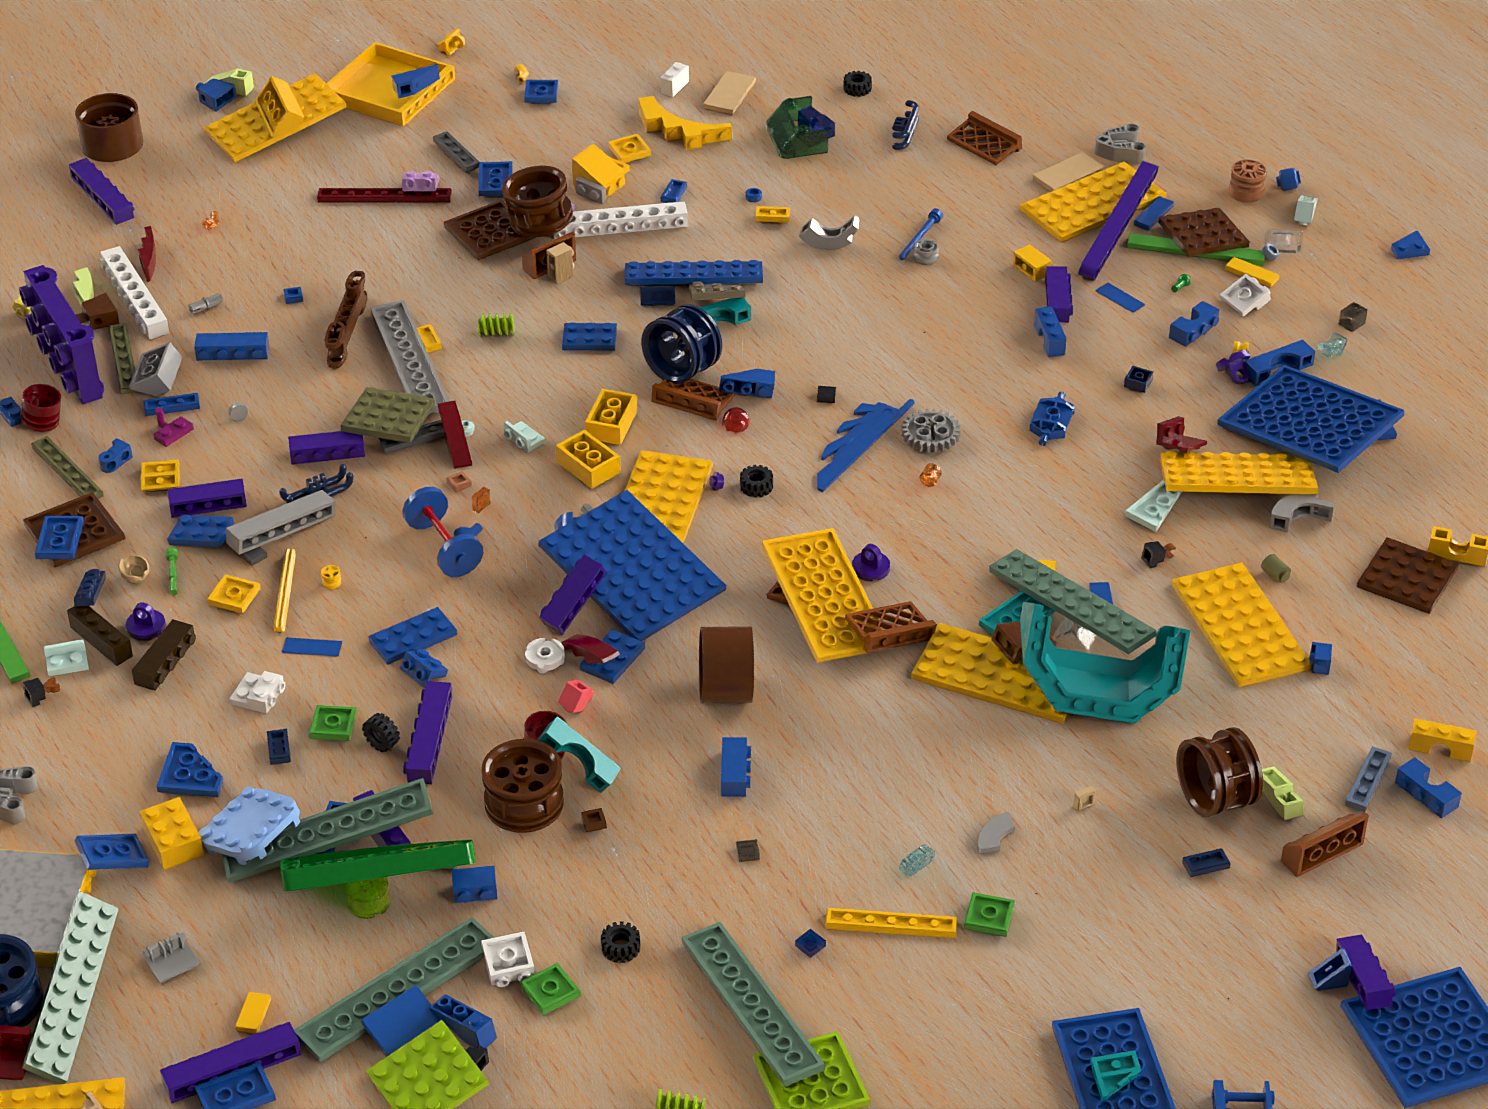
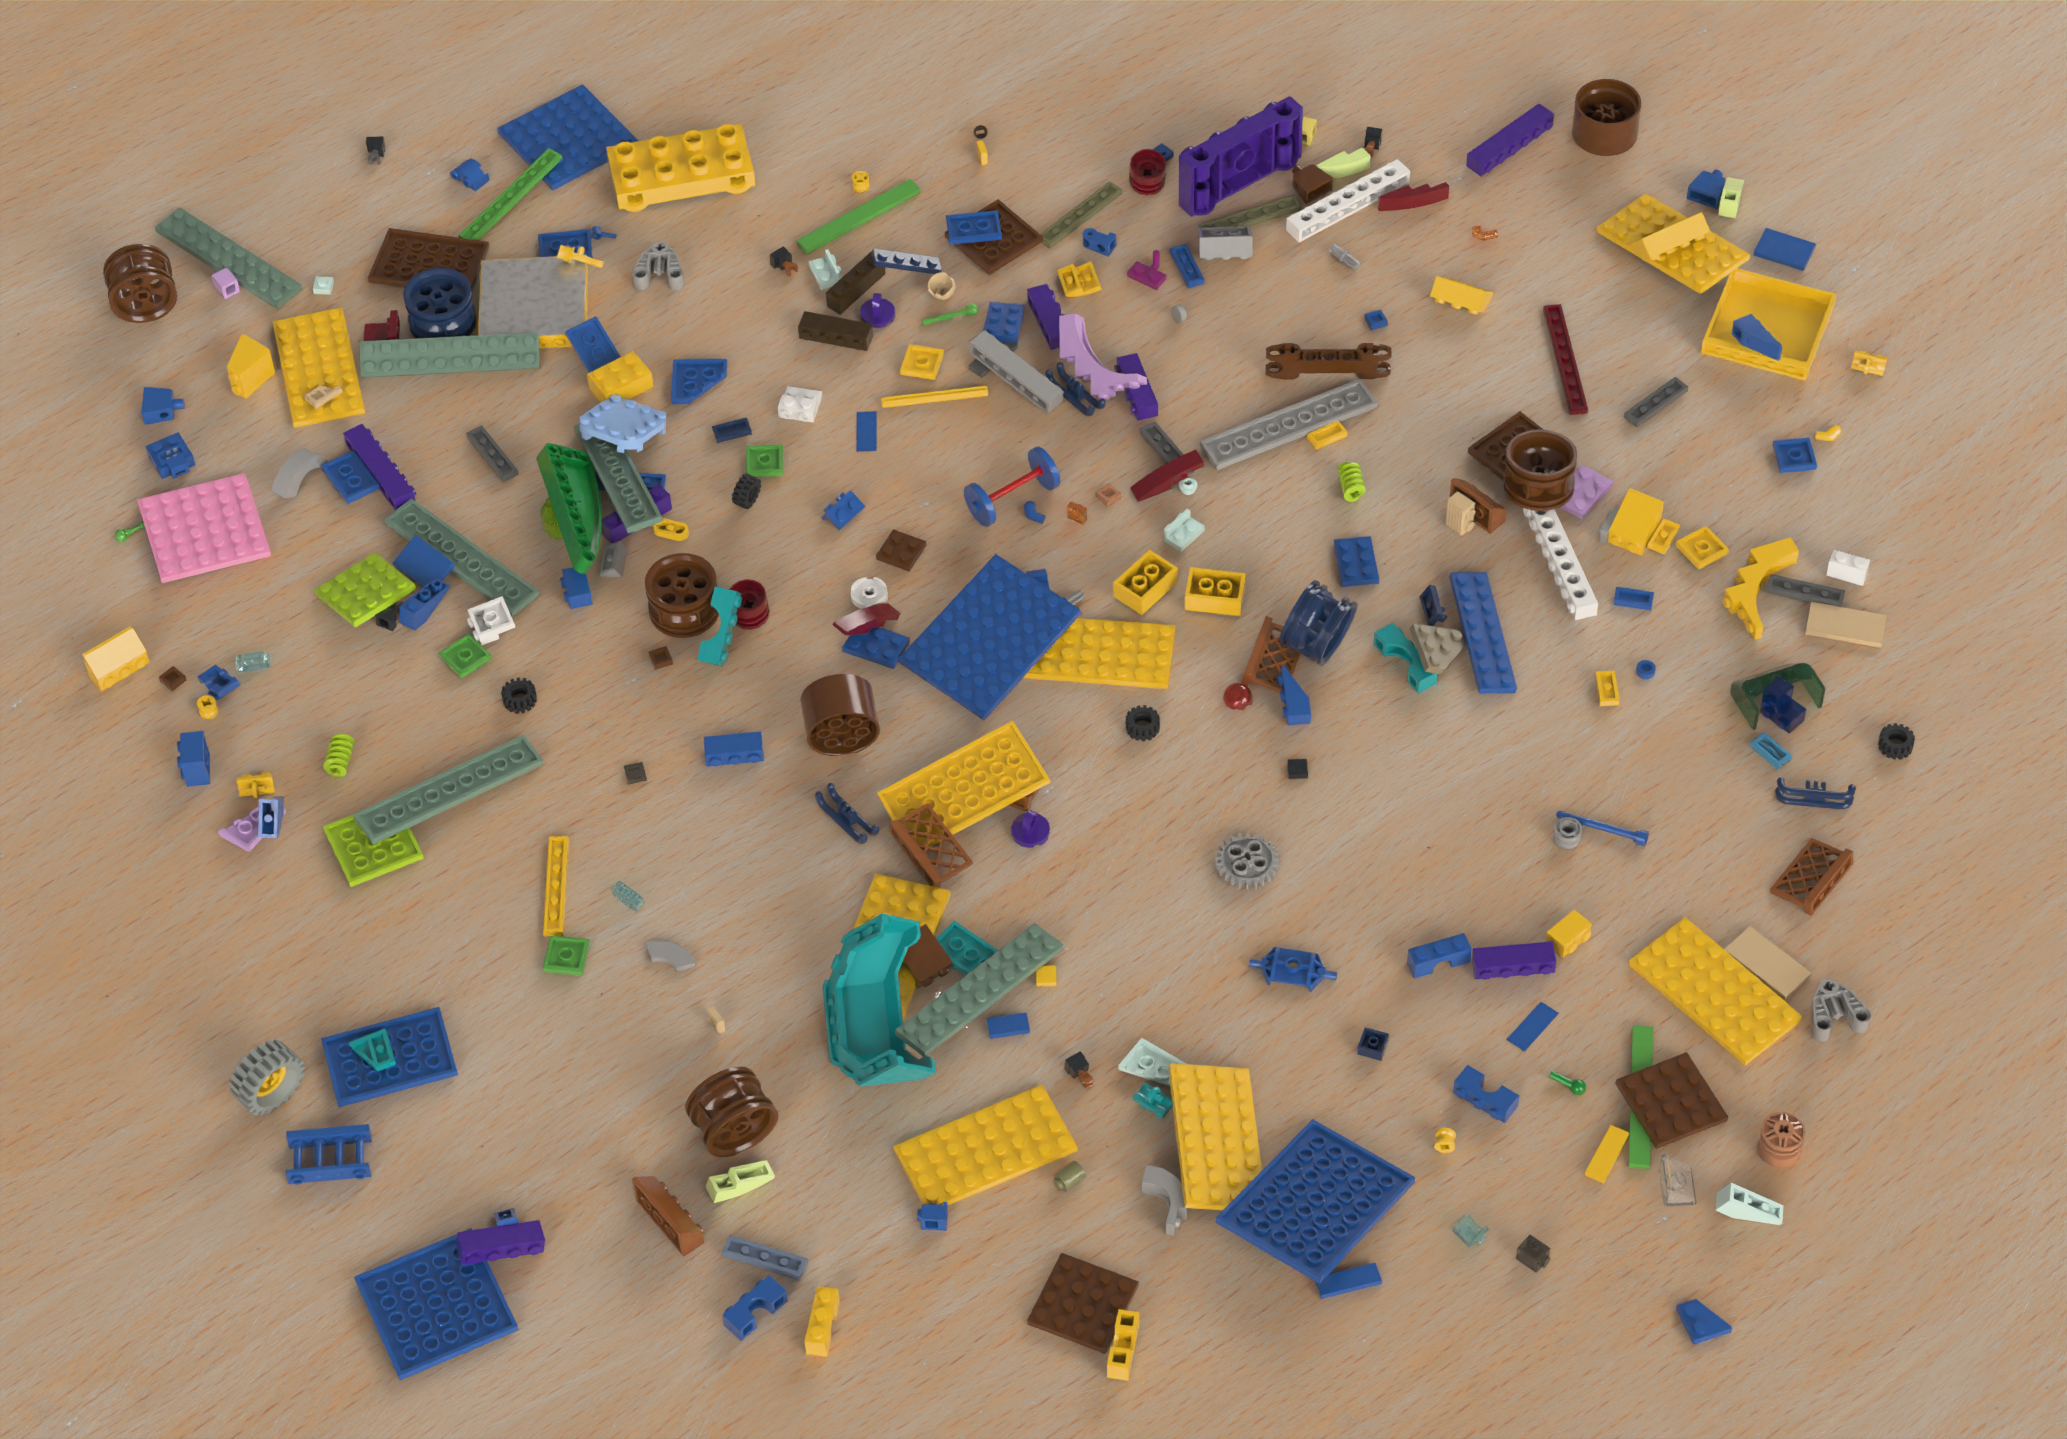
camera: 85 degrees right, 10 degrees up
(62, 269) = (1373, 139): none -> black piece
(170, 958) = (488, 410): light grey hinge -> none
(231, 346) = (1277, 288): blue brick -> none
(242, 955) = (492, 453): none -> dark grey plate
(253, 1013) = (434, 473): yellow tile -> none
(267, 473) = (1077, 350): none -> lavender arch
(286, 239) = (1460, 294): none -> yellow slope
(301, 66) = (1784, 249): none -> blue tile
(331, 577) = (954, 424): yellow wheel -> none
(388, 414) = (1181, 419): olive plate -> none
(412, 635) = (886, 497): blue plate -> none
(420, 181) = (1587, 380): lavender plate -> none
(428, 732) = (757, 527): dark purple brick -> none
(489, 629) = (901, 550): none -> reddish brown plate
(492, 177) = (1614, 442): blue plate -> none
(572, 594) = (933, 593): dark purple brick -> none
(575, 696) = (808, 620): coral brick -> none
(693, 102) = (1805, 591): none -> dark grey plate
(716, 481) = (1135, 690): dark purple plate -> none
(810, 943) = (524, 827): clear blue plate -> none
(829, 238) = (1572, 737): light grey arch -> none
(837, 688) = (846, 815): none -> dark blue piece
(853, 144) = (1768, 752): none -> dark azure tile
(863, 434) = (1220, 799): blue animal -> none
(930, 475) = (1174, 865): clear orange wheel -> none
(1118, 220) = (1666, 1009): dark purple beam -> none
(1153, 212) = (1705, 1052): blue tile -> none
(1171, 436) = (1266, 1079): dark red bracket -> none
(1196, 508) = (1153, 1100): none -> teal hips
(1206, 862) = (642, 1121): dark blue plate -> none
(1234, 364) = (1409, 1129): dark purple tile -> none
(1246, 295) = (1550, 1144): white plate -> none
(1270, 251) = (1648, 1170): sand blue tile -> none
(1288, 179) = (1805, 1187): blue head -> none
(1295, 355) = (1414, 1160): blue arch -> none

